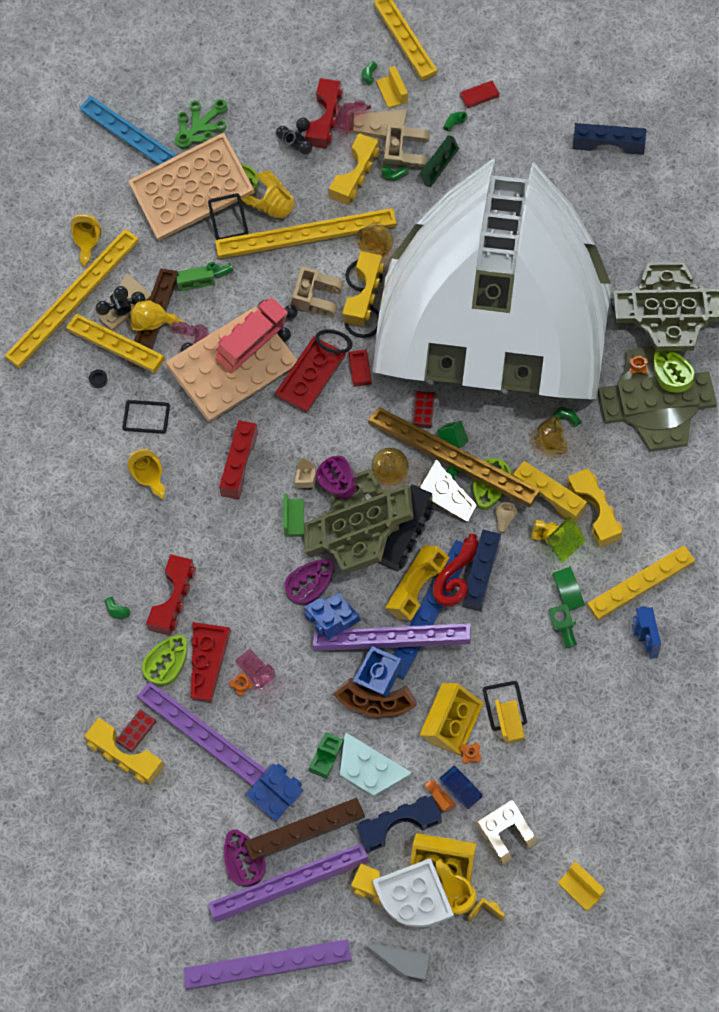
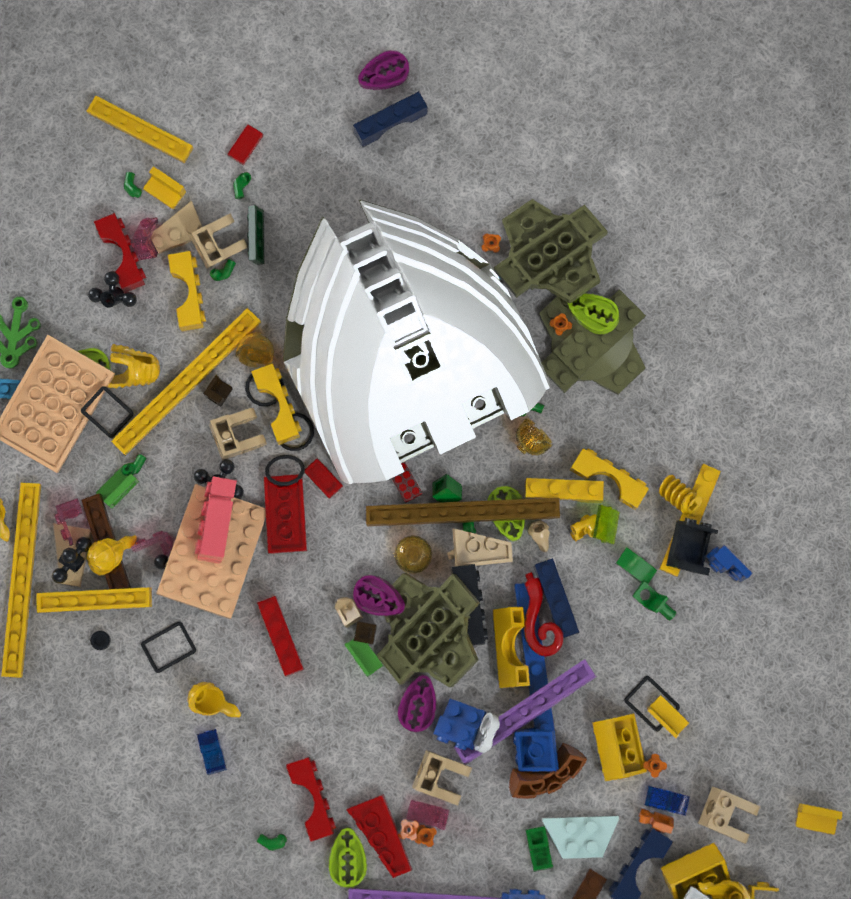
camera: 40 degrees left, 15 degrees up
(121, 513) = (212, 752): none -> clear blue slope
(142, 268) = (64, 511): none -> clear pink bracket
(231, 669) = (413, 834): none -> orange plate
(279, 636) = (429, 773): none -> tan brick
(308, 498) = (365, 633): none -> dark brown panel
(324, 254) = (217, 391): none -> dark brown panel
(342, 634) = (486, 732): none -> white plate
(621, 108) = (383, 61): none -> magenta piece
(624, 596) = (690, 546): none -> black panel
(626, 271) = (491, 238): none -> orange plate
(644, 553) = (679, 495): none -> yellow piece

